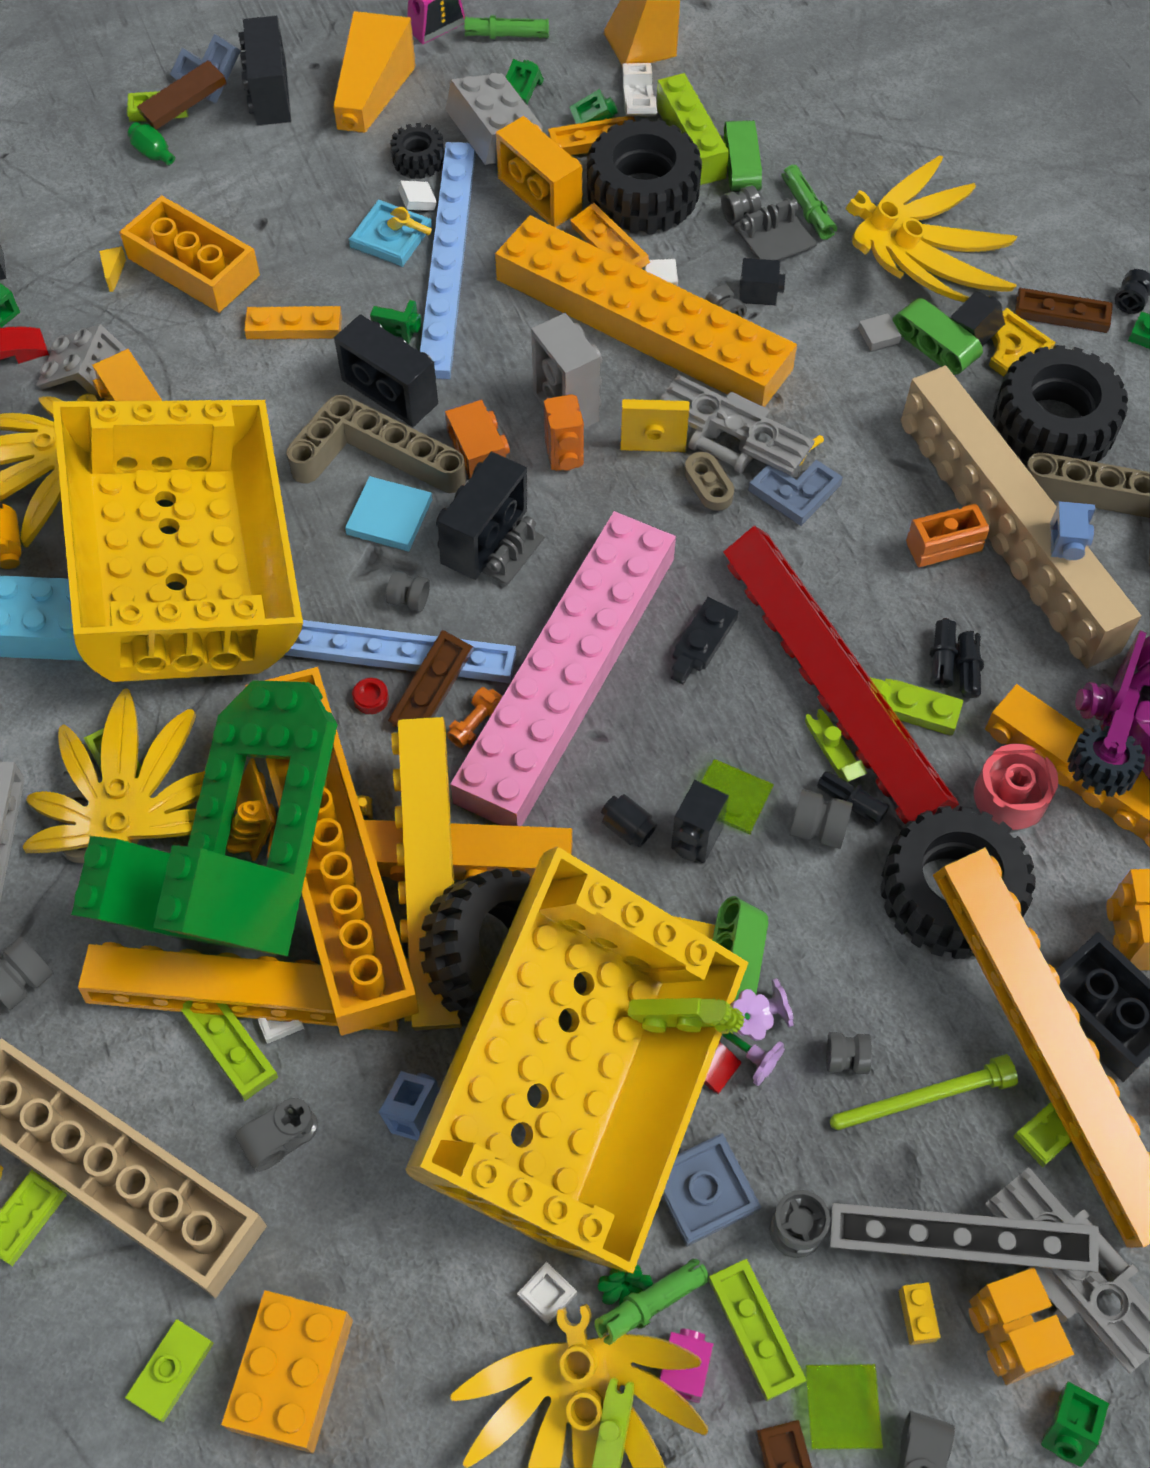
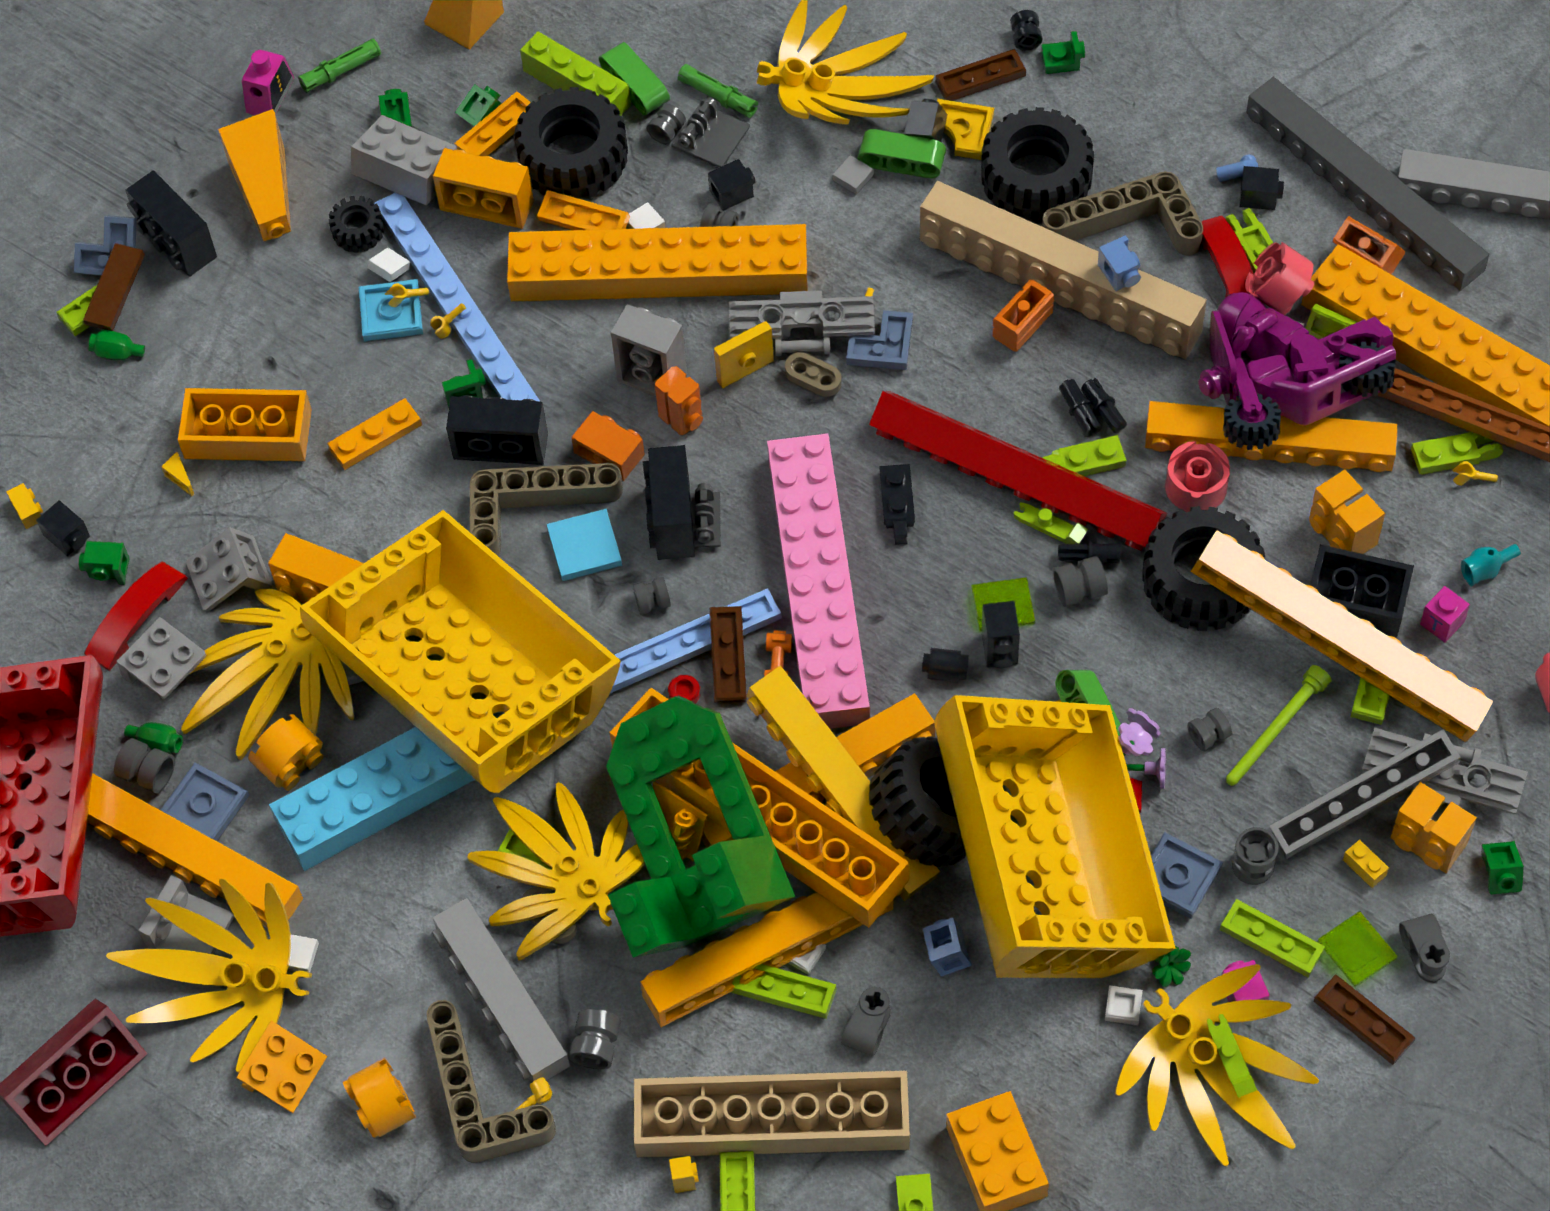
camera: 30 degrees left, 0 degrees up
(419, 266) = (444, 322): none -> yellow hand
(638, 90) = (503, 68): white slope -> none
(641, 1307) = (1193, 969): bright green pin -> none
(686, 1014) = (1093, 765): lime hinge -> none

